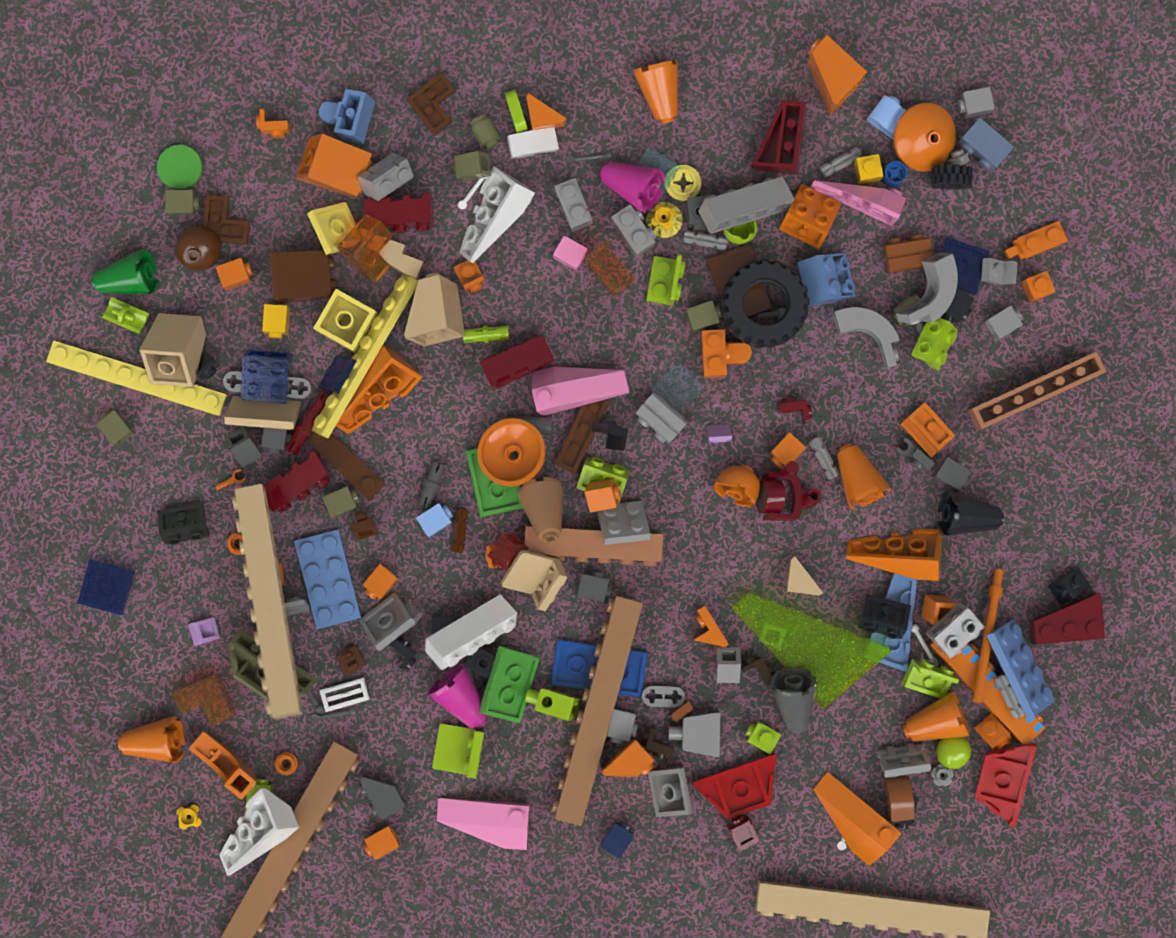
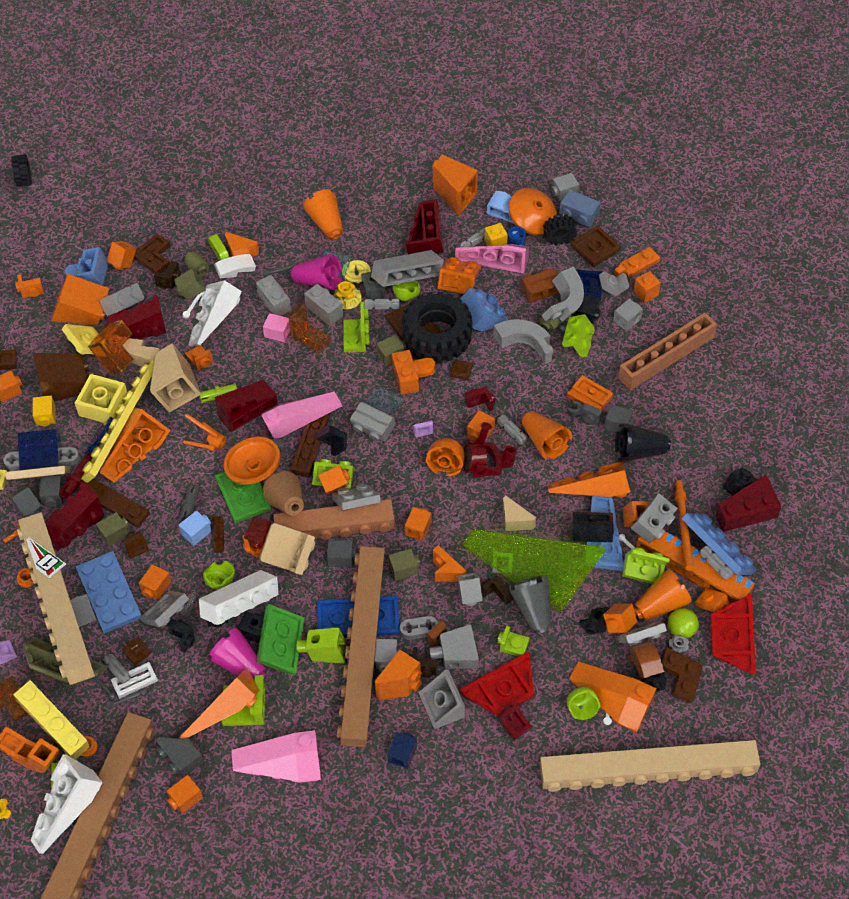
camera: 10 degrees left, 30 degrees down
(252, 742) = (51, 720): none -> light yellow brick
(260, 556) = (43, 559): none -> sticker
(327, 681) = (116, 668): none -> light grey axle
(392, 100) = (121, 255): none -> orange brick
(438, 758) = (230, 701): none -> orange wedge
(447, 594) = (223, 571): none -> lime hair
(453, 143) = (167, 280): none -> dark brown bracket
(473, 401) = (215, 439): none -> orange plant
(662, 616) = (404, 564): none -> olive brick
(688, 566) = (418, 523): none -> orange brick
(782, 359) = (461, 369): none -> reddish brown tile
(827, 826) = (583, 697): none -> lime hair
(860, 732) = (596, 622): none -> black bracket
(885, 738) = (620, 618): none -> orange brick
(940, 813) = (686, 672): none -> reddish brown plate
(991, 206) = (595, 246): none -> reddish brown plate

